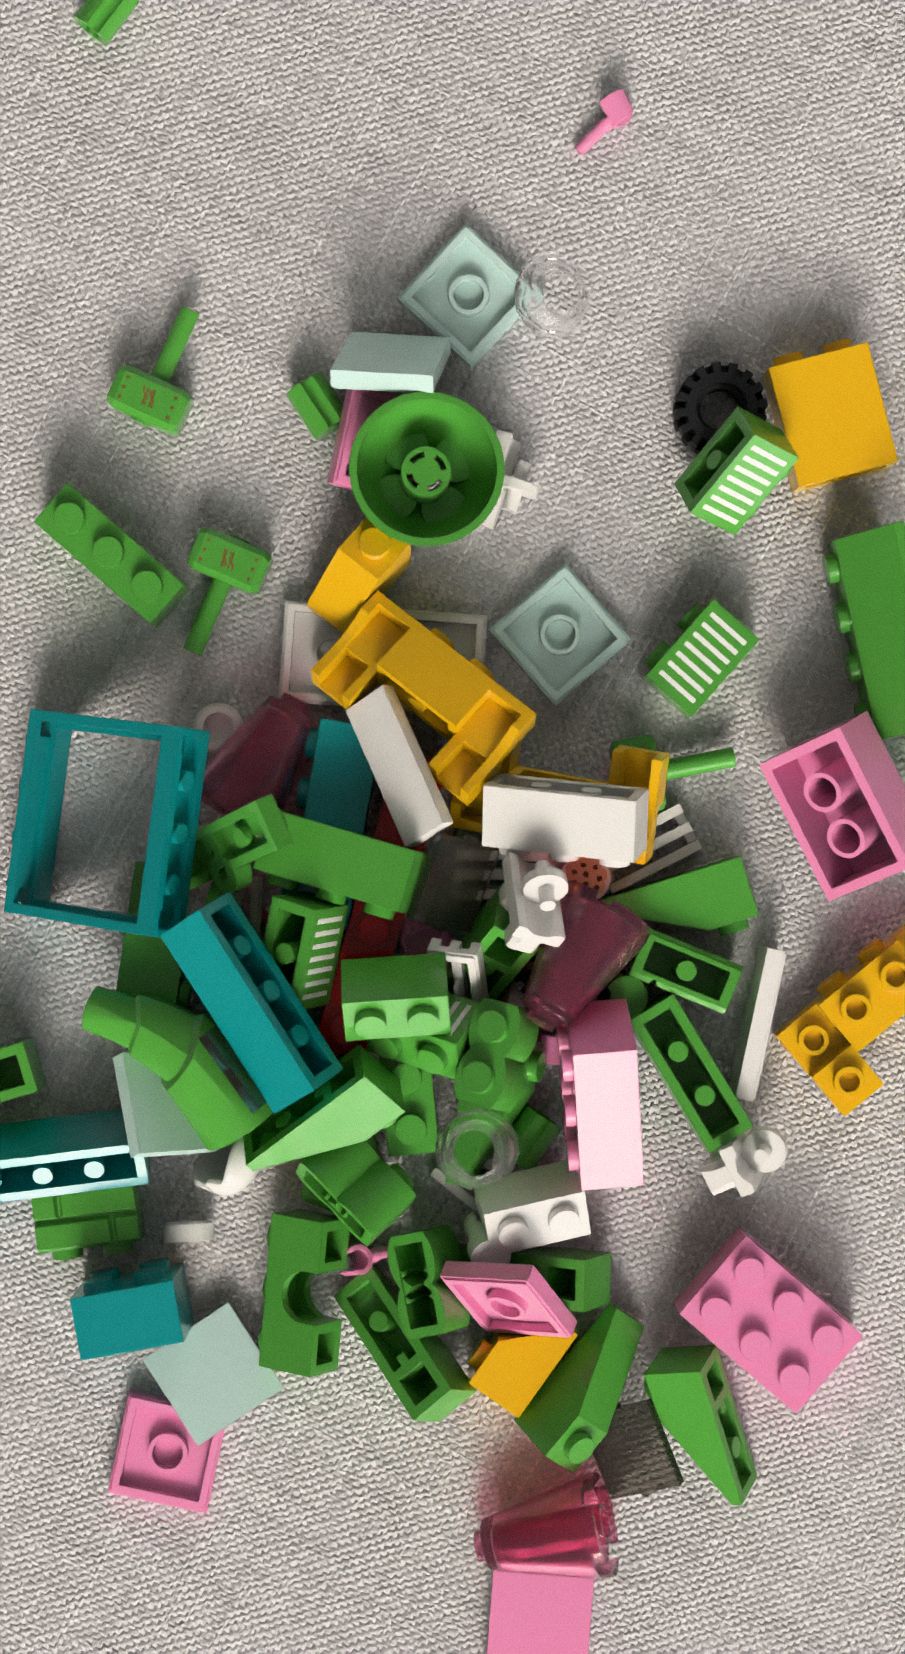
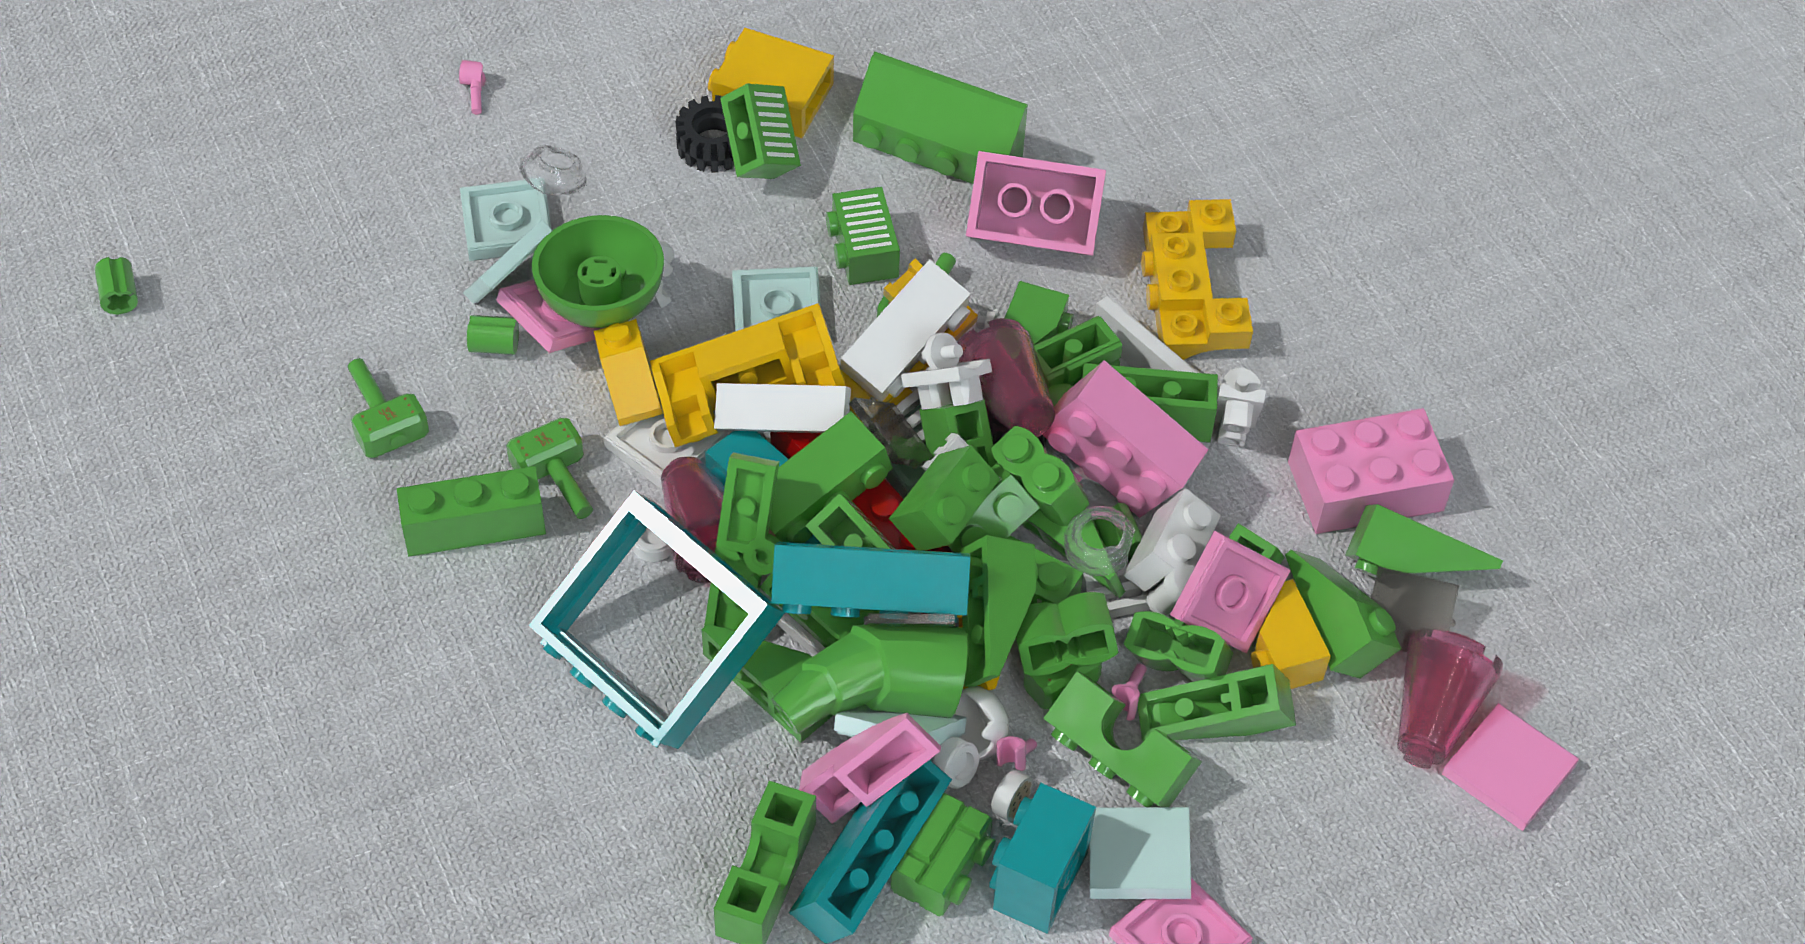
camera: 55 degrees left, 35 degrees down
(89, 1112) = (867, 765): none -> bright pink slope
(173, 1171) = (958, 760): none -> white tile
(230, 1209) = (1014, 750): none -> bright pink hand

